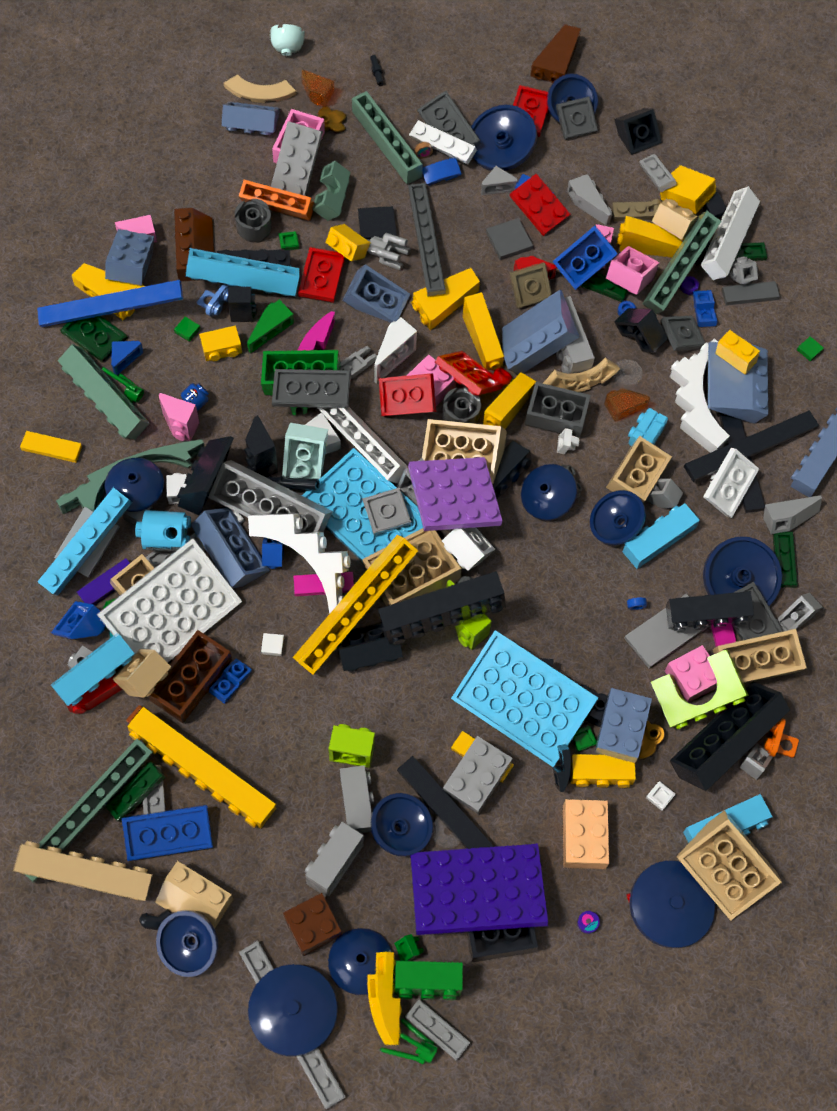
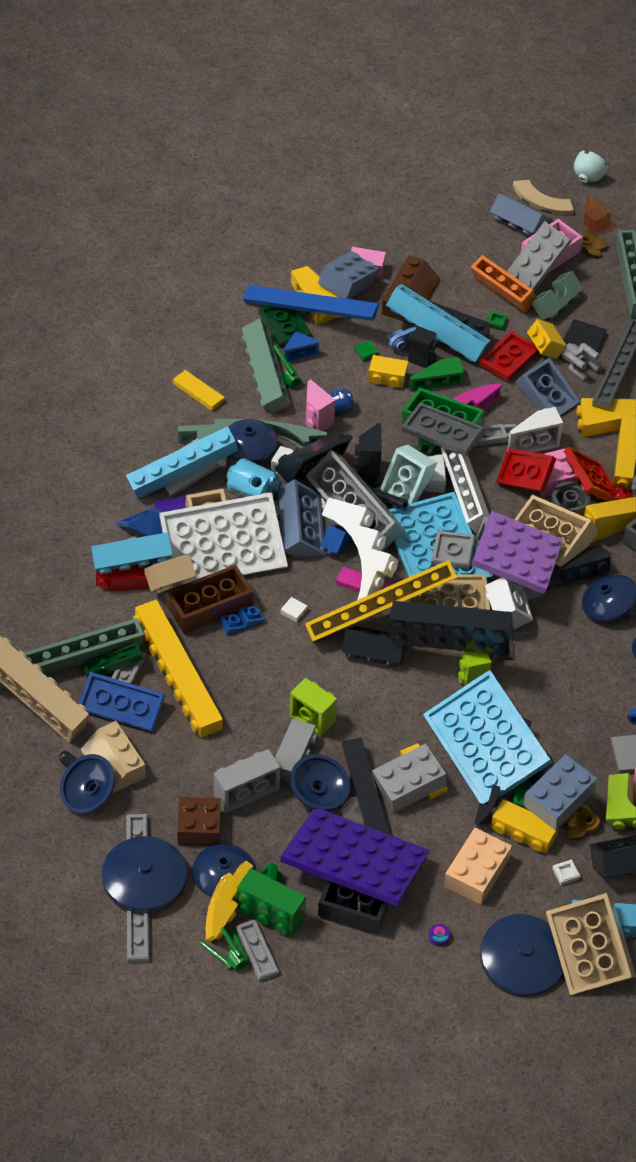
camera: 30 degrees right, 15 degrees down
(253, 220) = (473, 291): dark grey brick -> none

